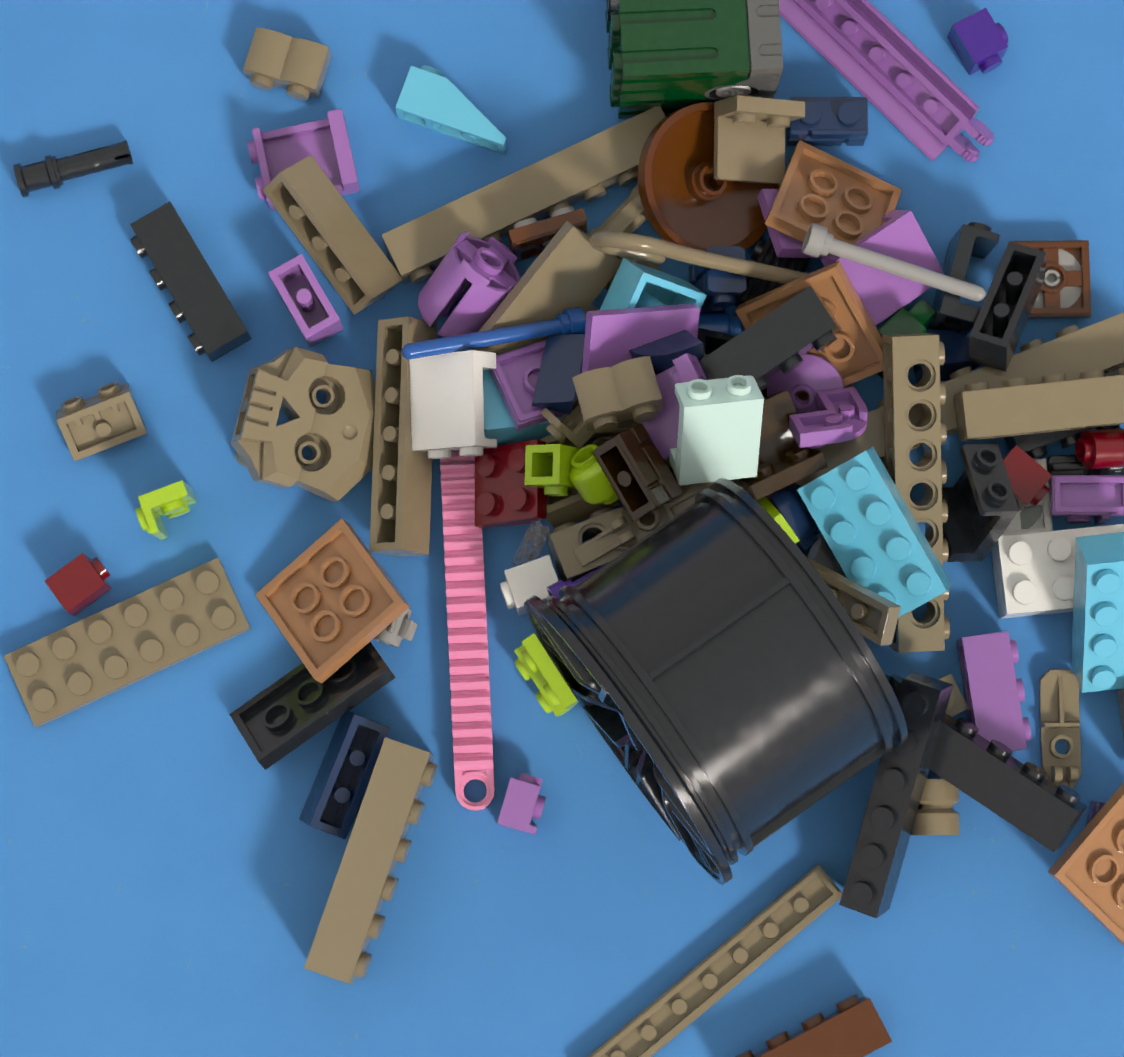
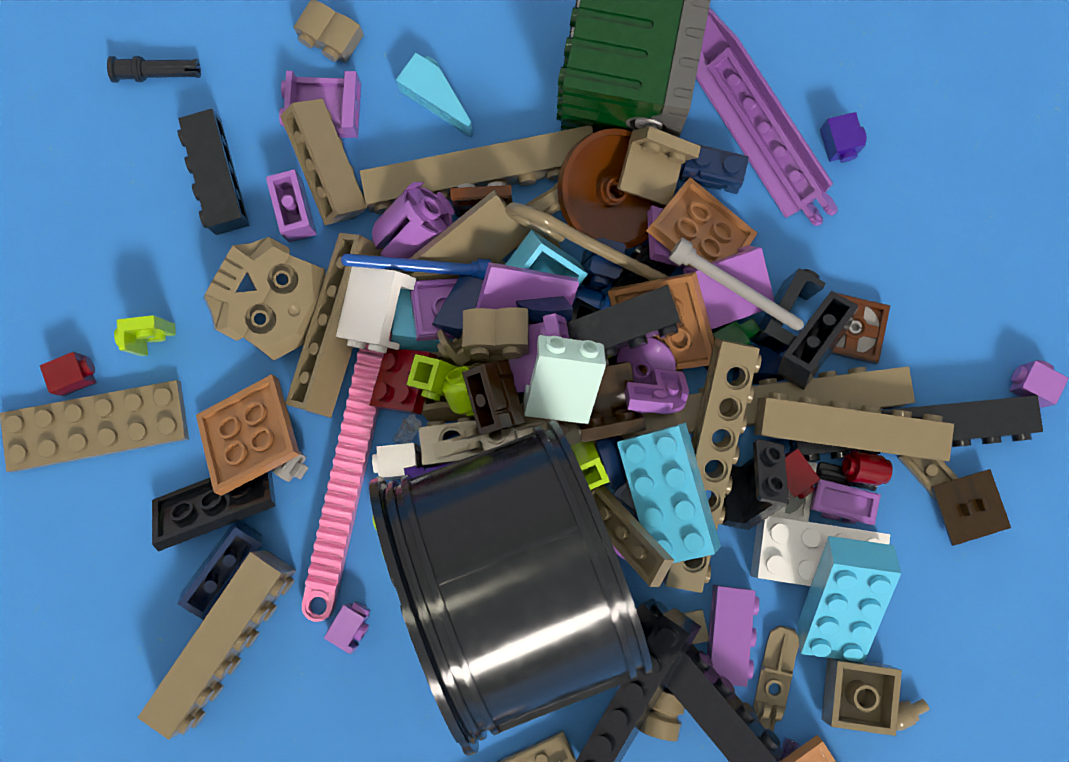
camera: 20 degrees right, 0 degrees up
(100, 420) = (119, 257): dark tan bracket -> none

